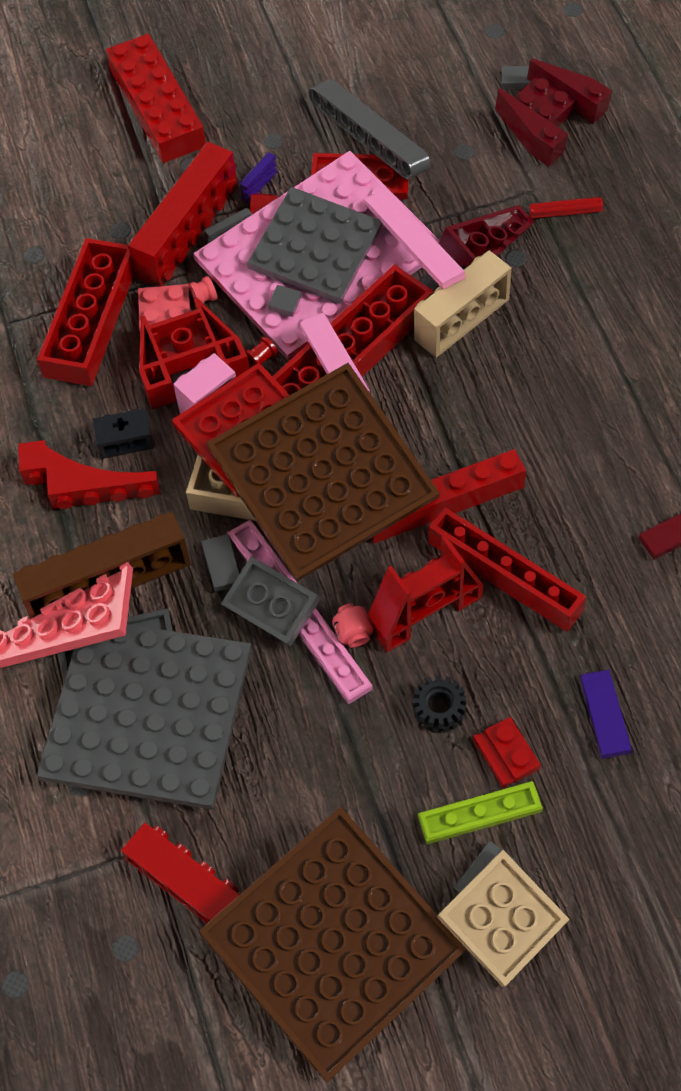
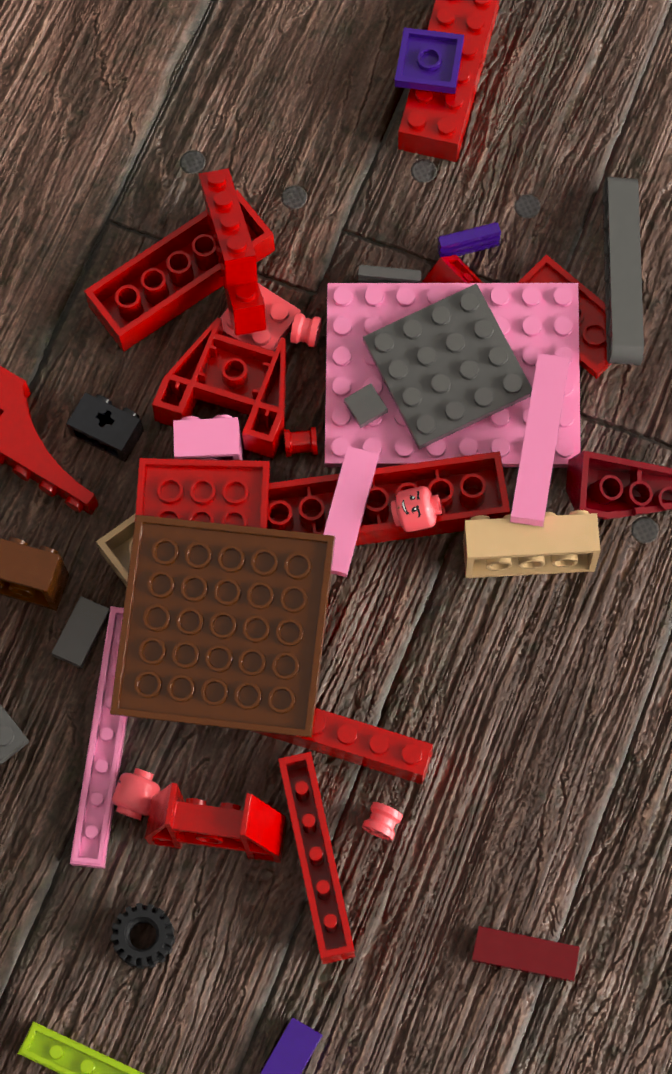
camera: 40 degrees right, 10 degrees up
(123, 267) = (234, 252): none -> red arch
(144, 90) = (429, 60): none -> dark purple plate
(183, 215) = (356, 232): red brick -> none
(271, 601) = (80, 710): dark grey plate -> none
(378, 324) = (415, 509): none -> coral head
(506, 752) = (161, 1032): red plate -> none
(523, 520) = (382, 821): none -> coral wheel

